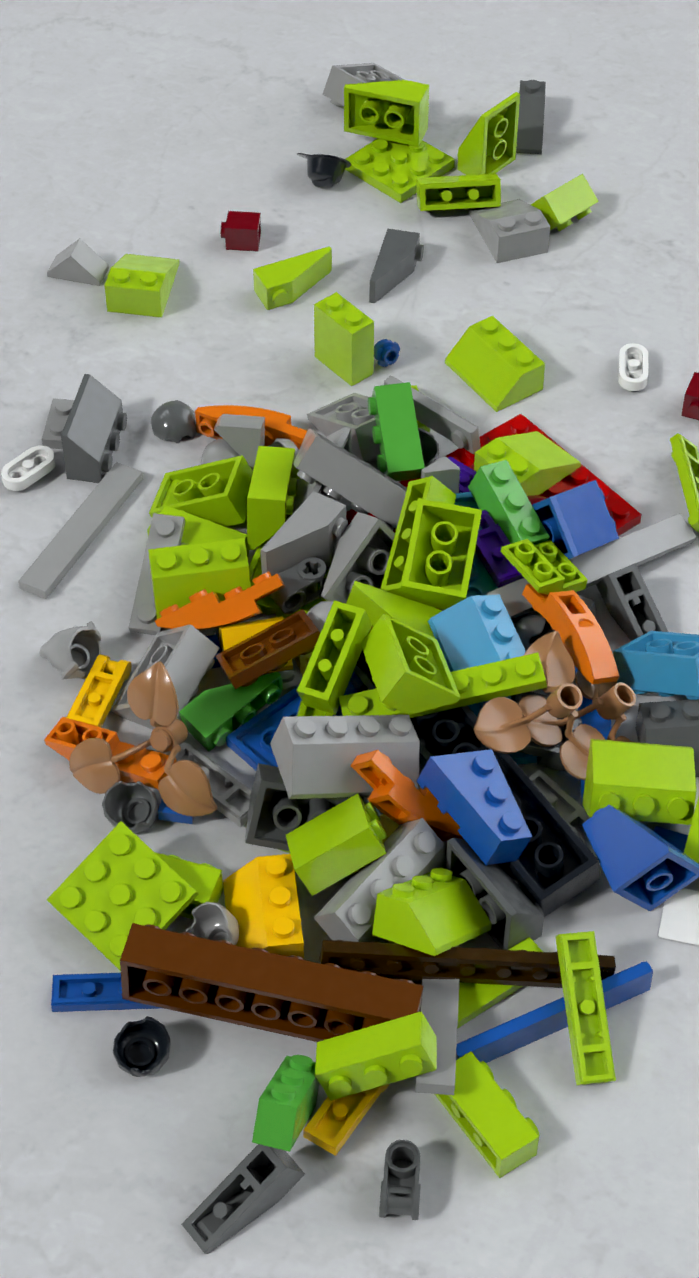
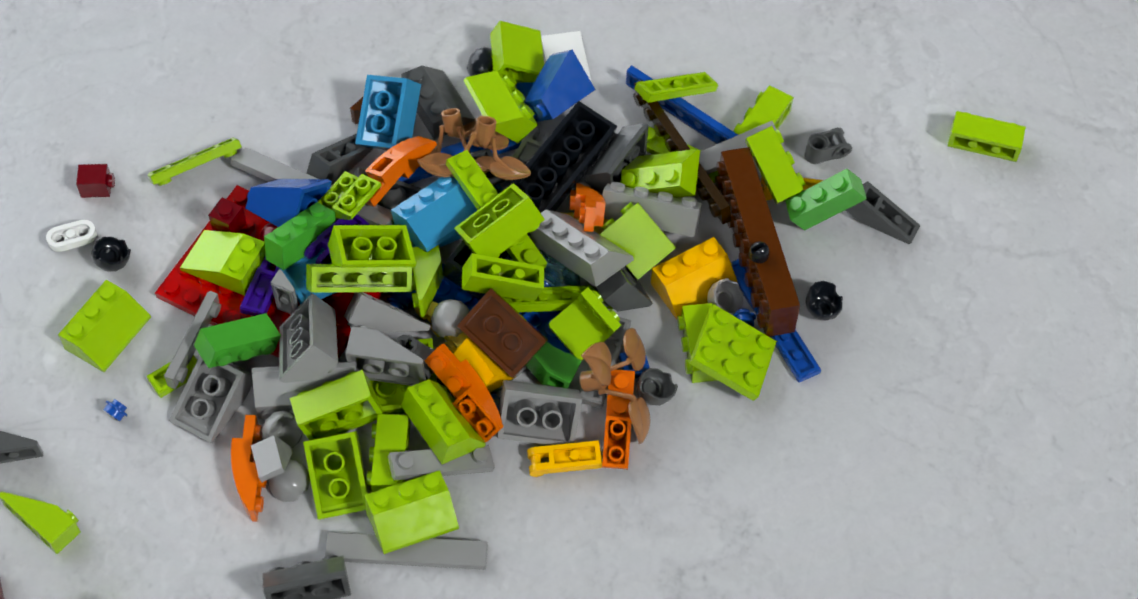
camera: 115 degrees left, 10 degrees up
(73, 650) = (541, 489): light grey hat -> none
(114, 533) = (411, 512): none -> lime slope
(173, 421) = (258, 536): dark grey hair -> none
(225, 955) = (760, 255): none -> black hinge
(241, 750) = (584, 323): none -> lime bracket
(344, 339) = (126, 430): lime brick -> none
(480, 802) = (578, 160): blue wedge -> none
(578, 470) = (227, 217): none -> dark red brick
(588, 386) = (110, 254): none -> black hair

